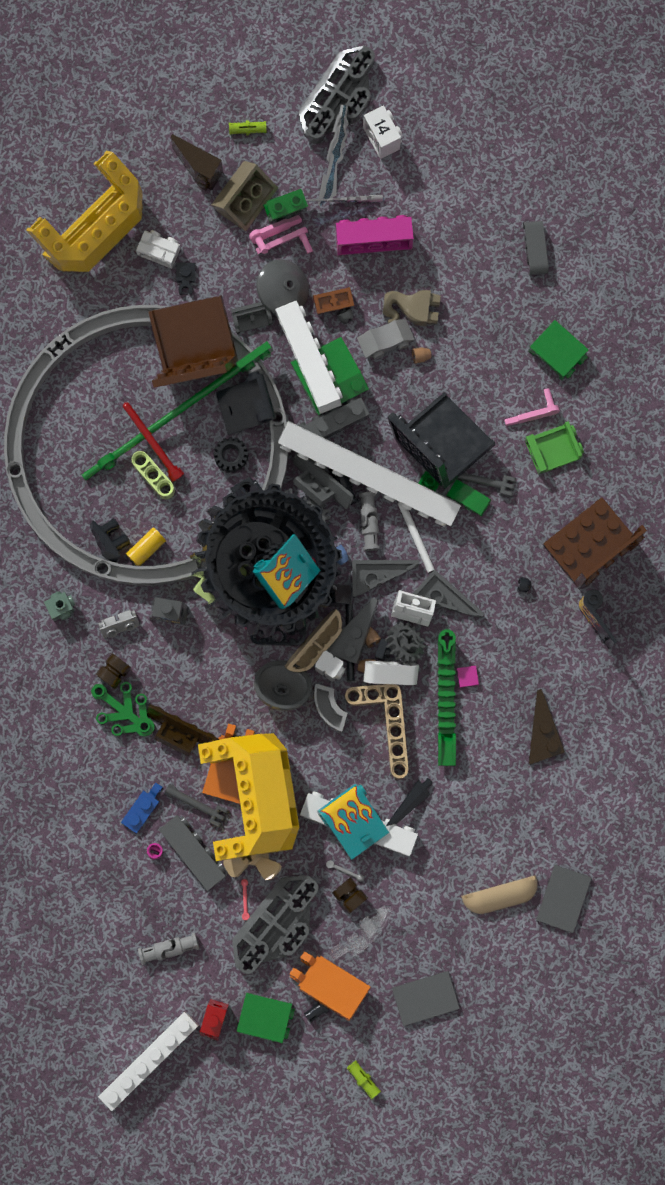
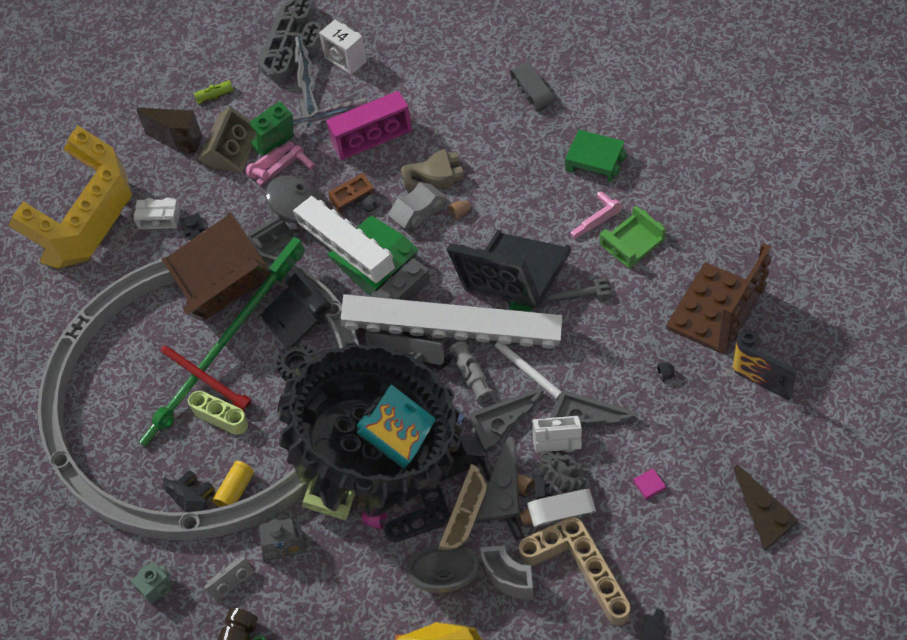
camera: 10 degrees left, 25 degrees down
(330, 666) = (489, 526): white brick -> none
(446, 696) = (645, 533): green piece -> none
(469, 497) = (572, 312): green slope -> none

